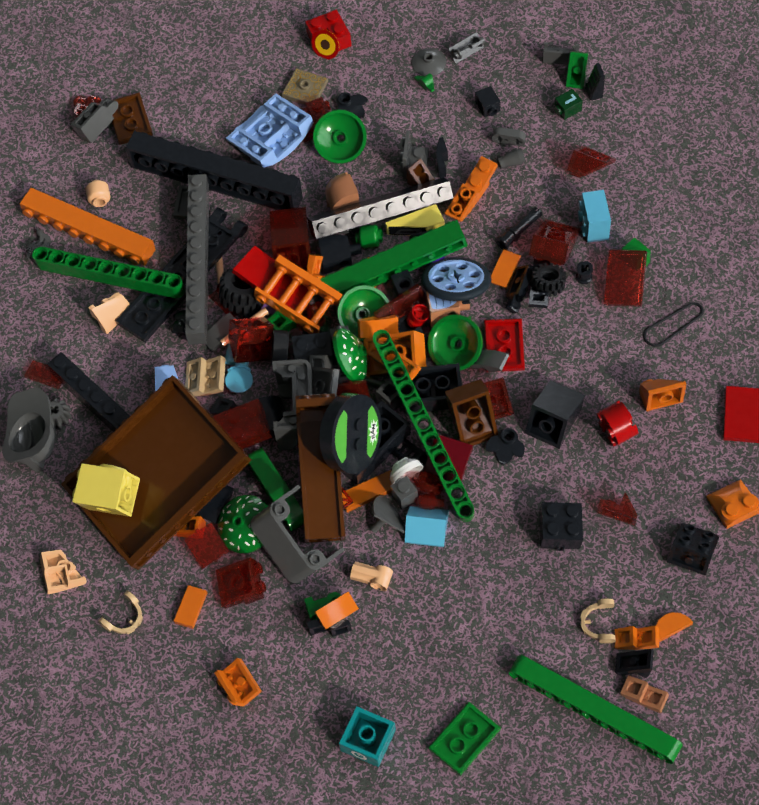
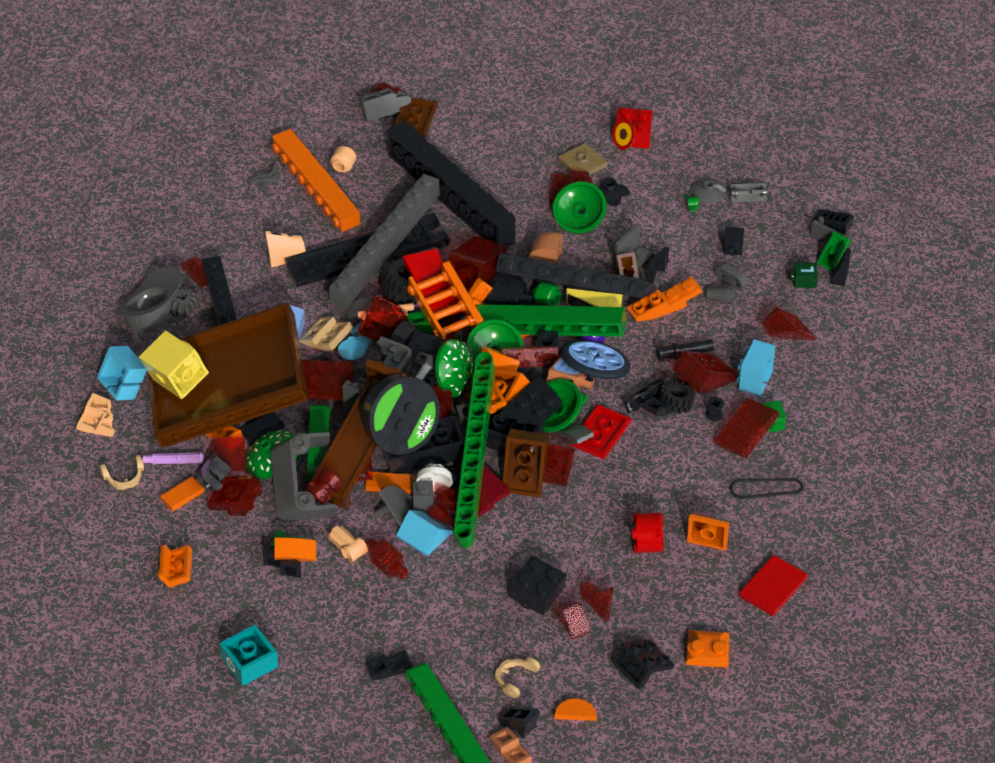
camera: 25 degrees right, 15 degrees down
(52, 512) = (121, 373): none -> medium azure piece
(109, 272) = (304, 218): green beam -> none
(158, 575) = (174, 458): none -> lavender piece
(207, 571) = (213, 472): none -> black brick
(272, 131) = (525, 180): light blue slope -> none
(323, 536) = (324, 486): none -> clear red wheel
(415, 571) = (387, 558): none -> clear red piece
(417, 316) = (539, 369): red wheel -> none
(440, 354) = (533, 404): none -> black wing
(464, 738) = (330, 702): green tile -> none
(489, 673) = (383, 667): none -> black slope
(505, 268) = (646, 373): orange slope -> none
(505, 449) = (538, 507): black plate -> none
(554, 413) = (600, 500): black slope -> none
(558, 43) = (843, 220): none -> black slope
(607, 538) = (572, 618): none -> clear red slope
(637, 638) = (534, 699): orange slope -> none

